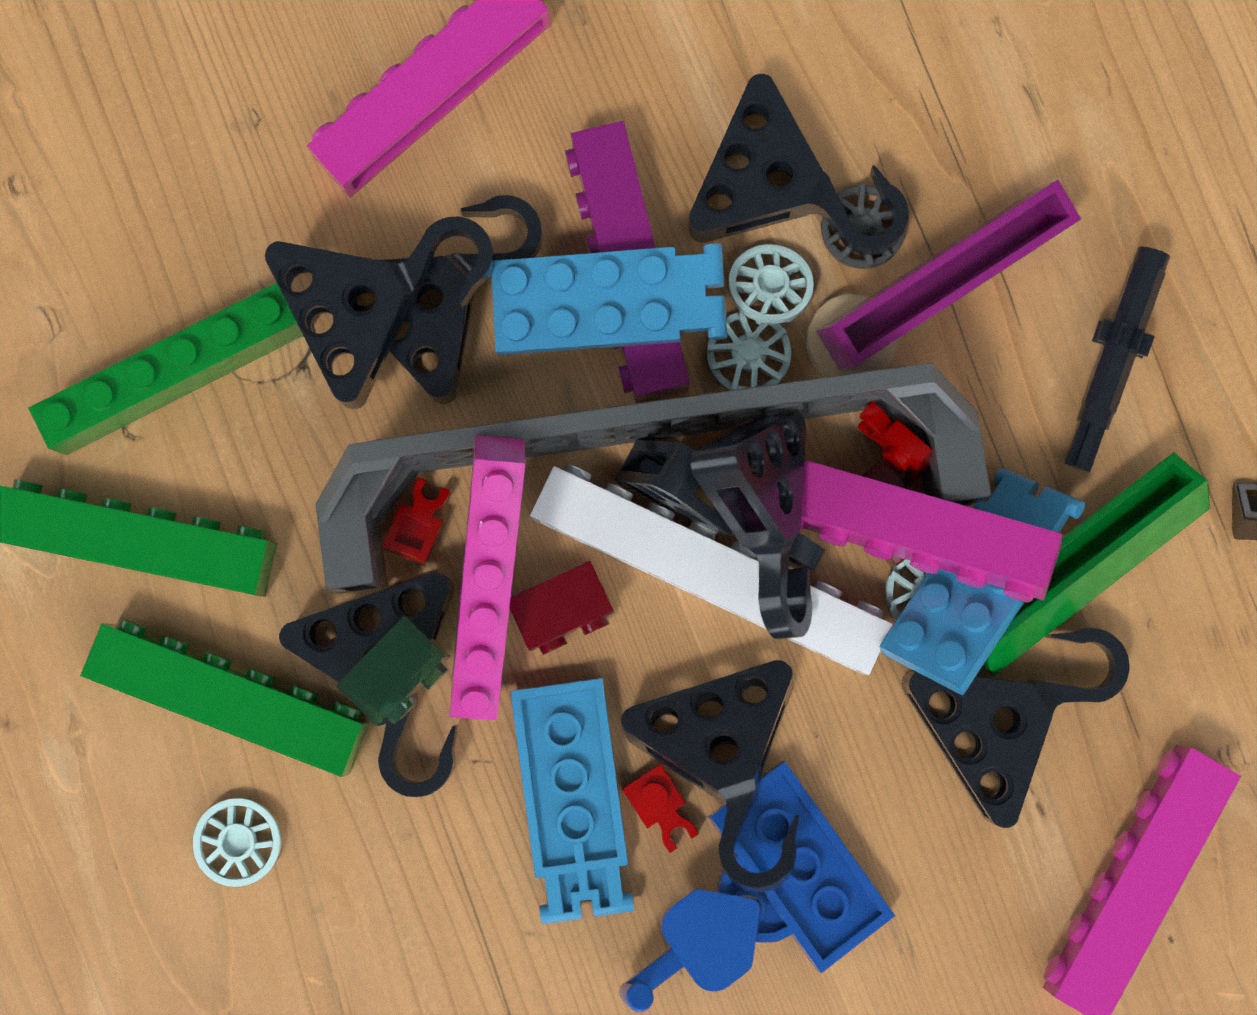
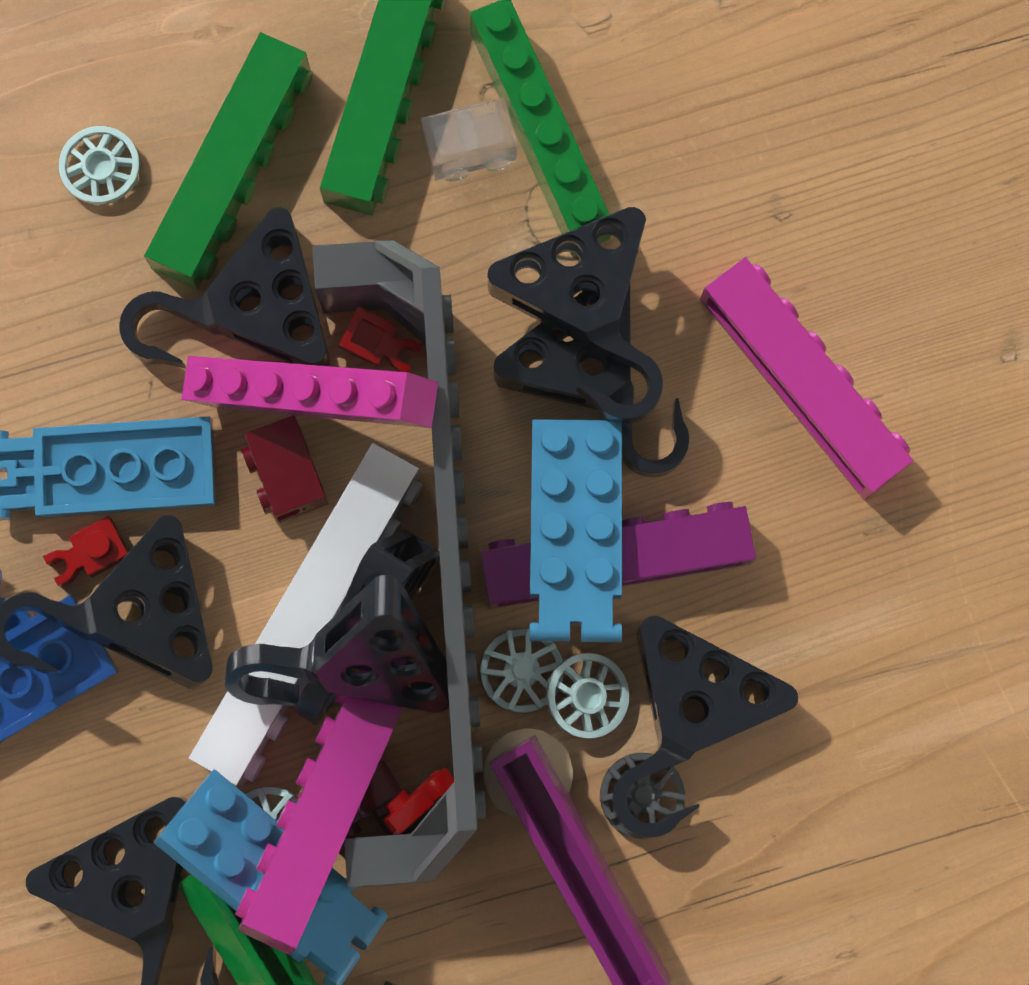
camera: 90 degrees right, 5 degrees down
(190, 443) = (469, 140): none -> clear brick
(394, 672) = (232, 304): clear green brick -> none

